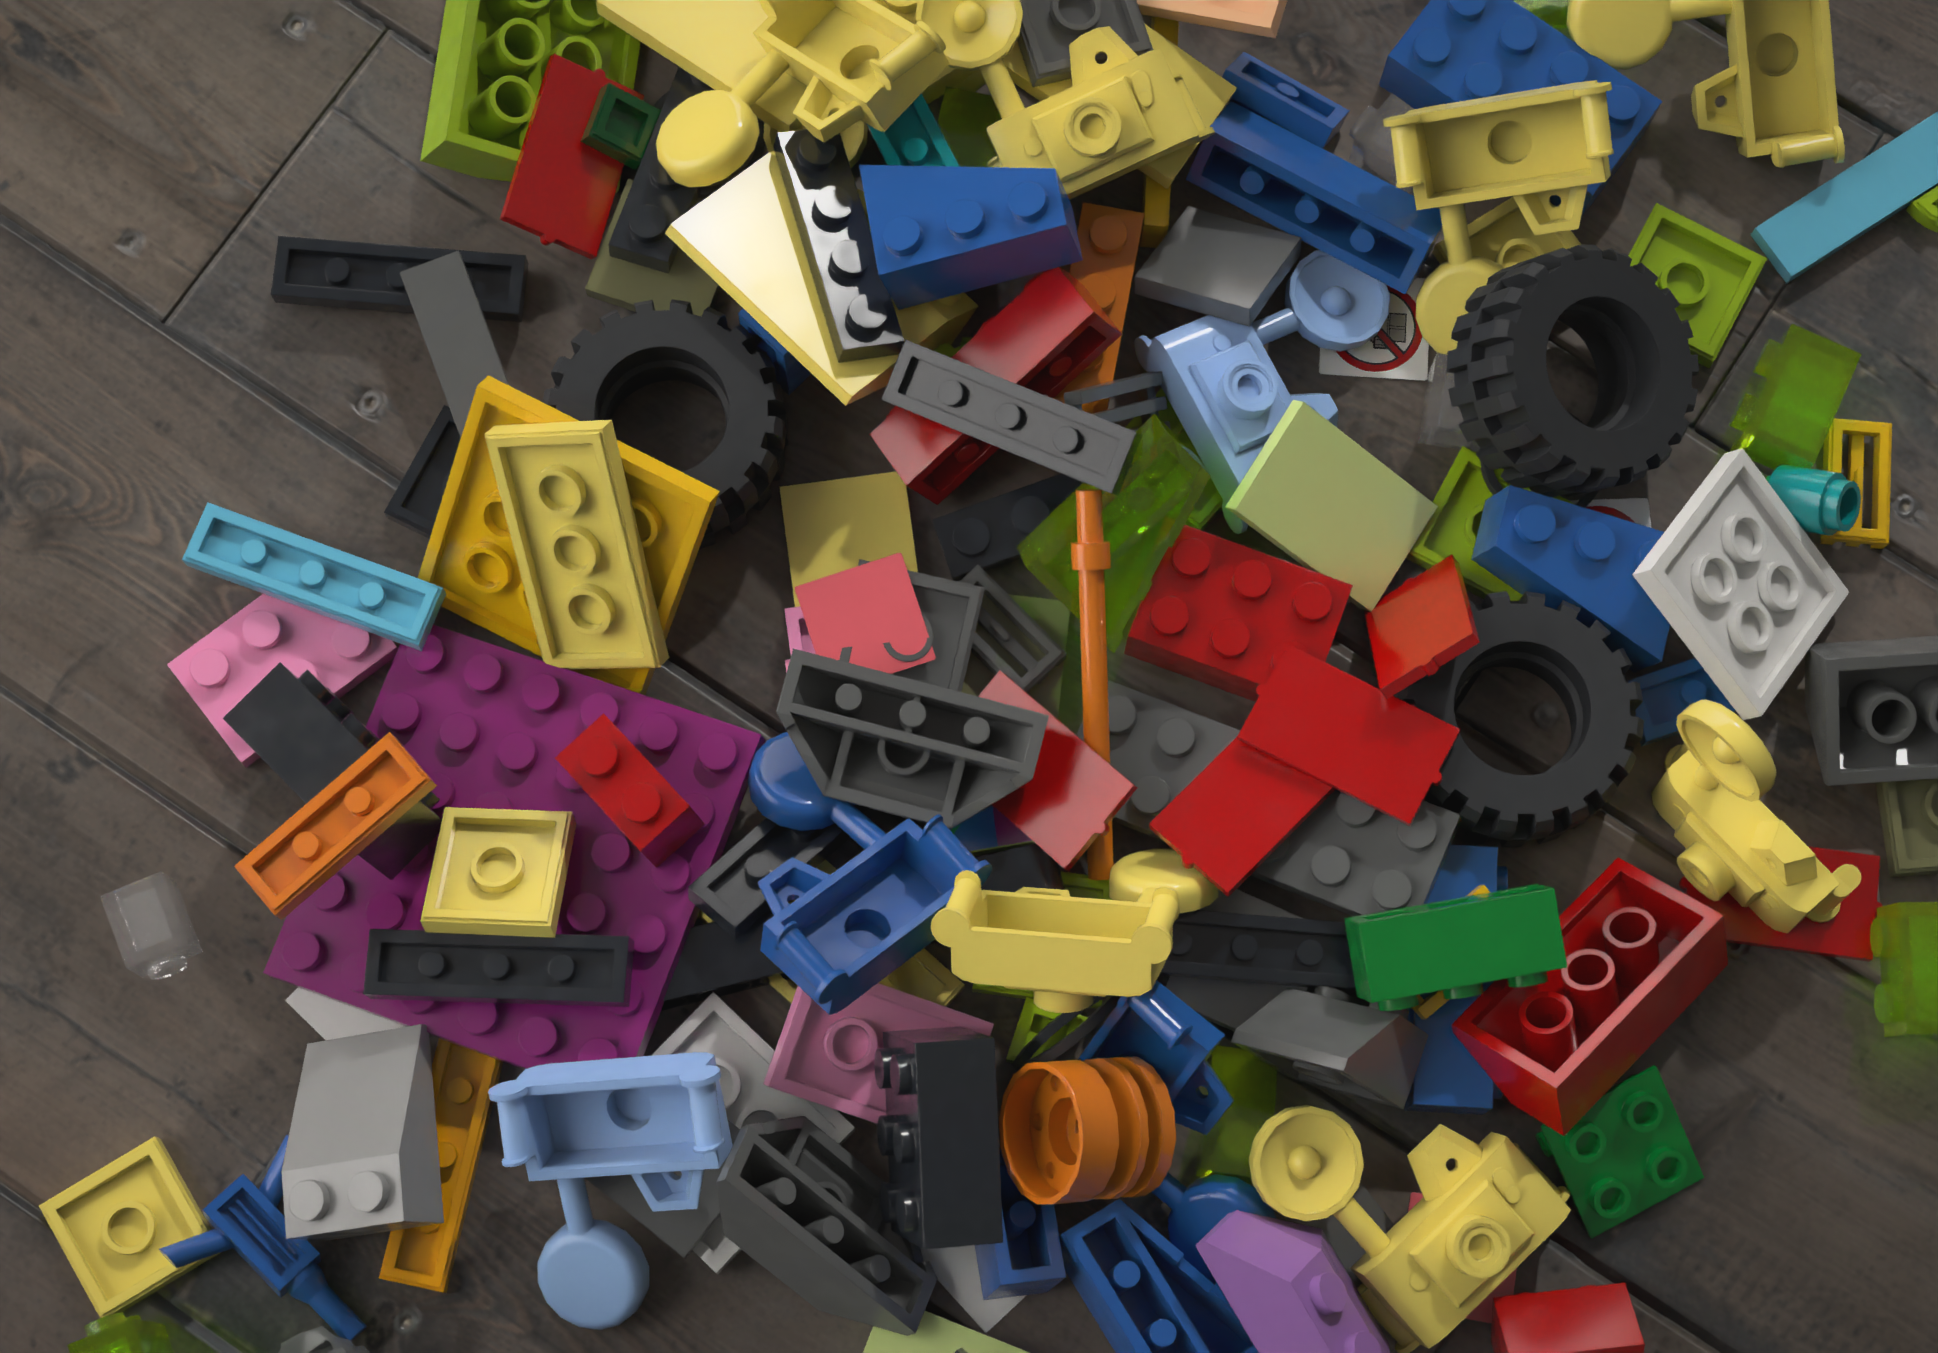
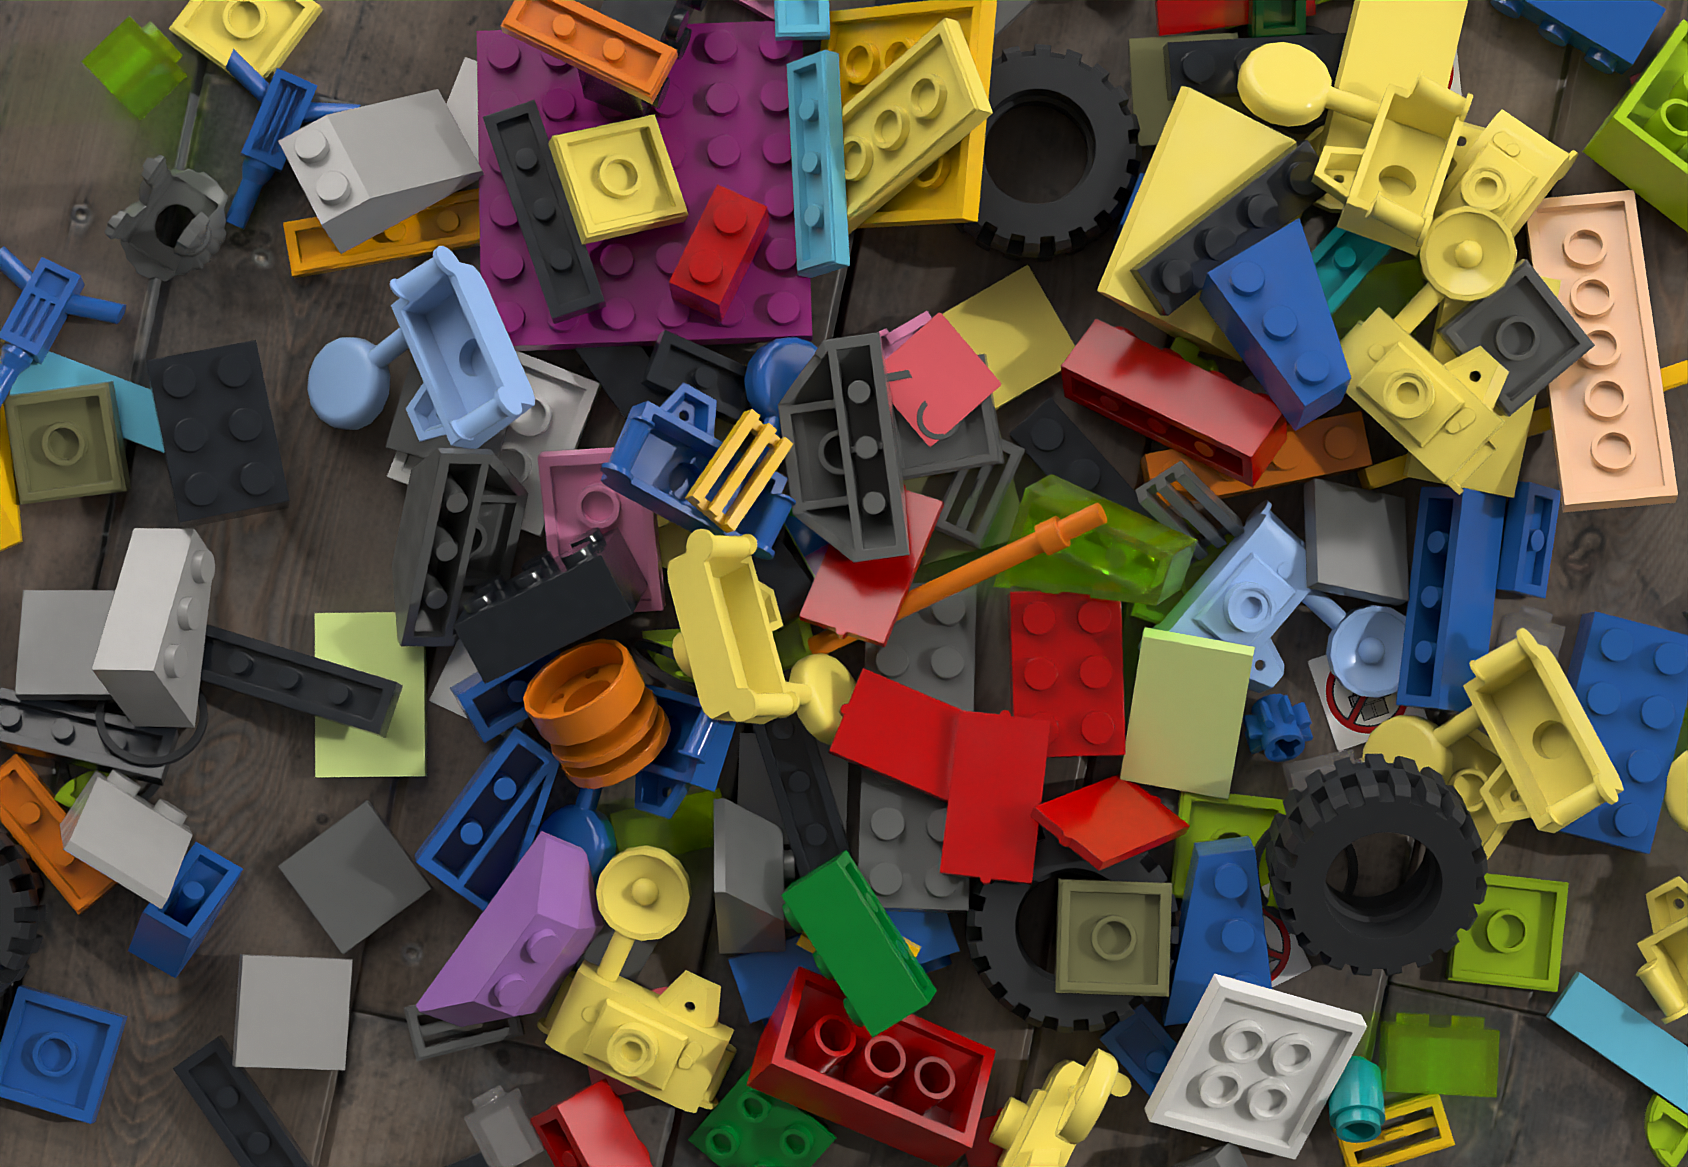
camera: 70 degrees right, 10 degrees up
(578, 652) = (818, 164): none -> medium azure tile
(900, 845) = (764, 437): none -> yellow tile
(1012, 417) = (1138, 427): plate -> none
(1383, 423) = (1278, 728): none -> blue gear
(1551, 668) = (1113, 937): none -> olive tile

